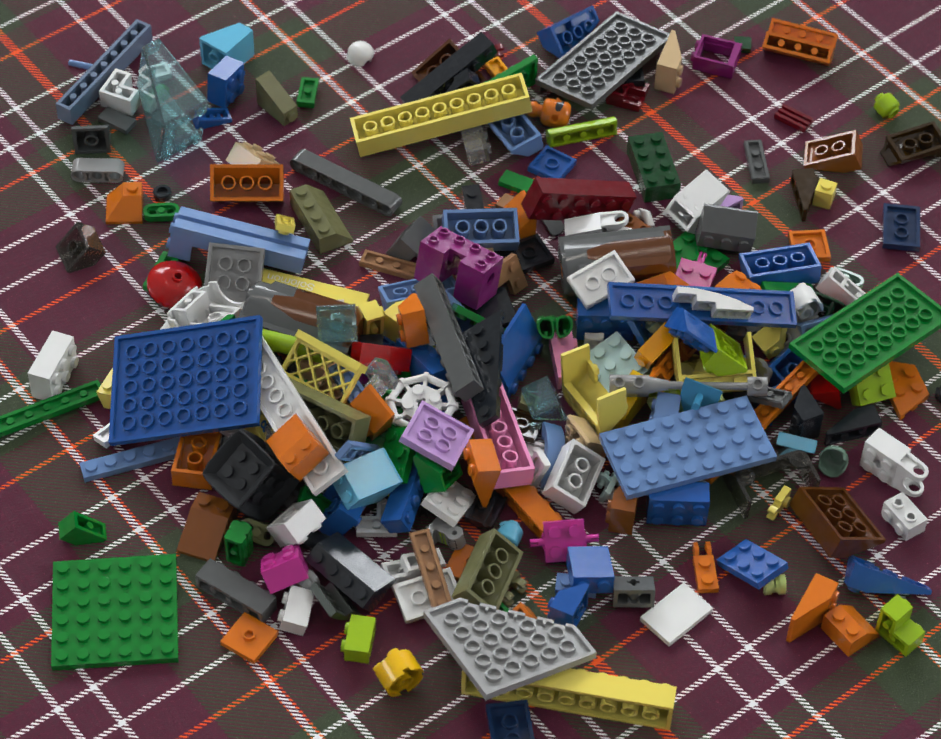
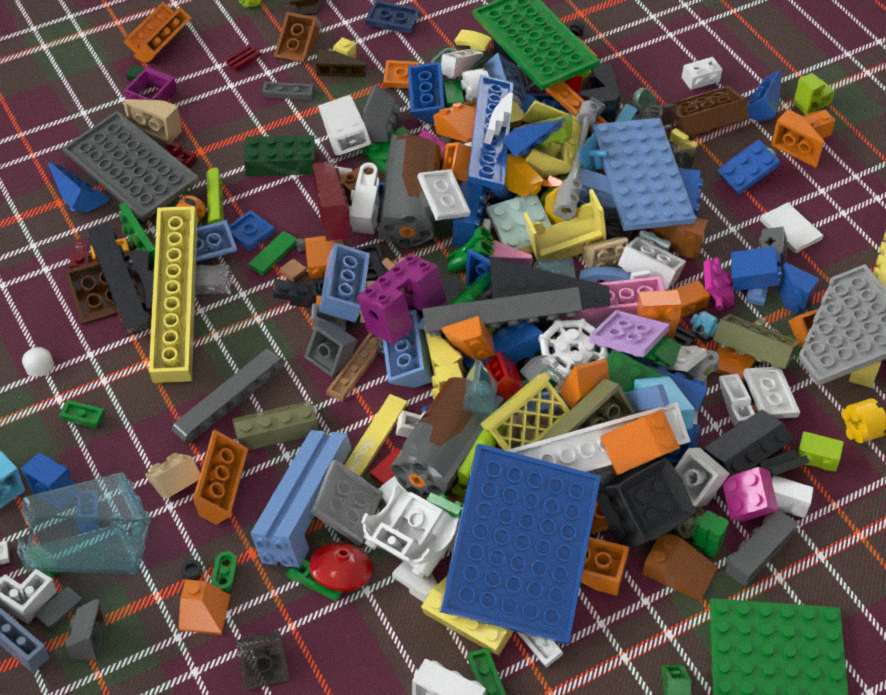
camera: 80 degrees left, 0 degrees up
(97, 170) = (139, 632): light grey beam -> none
(129, 460) = (583, 649): medium blue plate -> none
(249, 638) = (813, 544): orange plate -> none
(275, 99) = (90, 440): olive slope -> none
(284, 224) = (287, 448): light yellow plate -> none
(430, 567) = (764, 381): medium nougat tile -> none
(705, 569) = (743, 202): orange hinge -> none
(893, 463) = (653, 64): white brick -> none

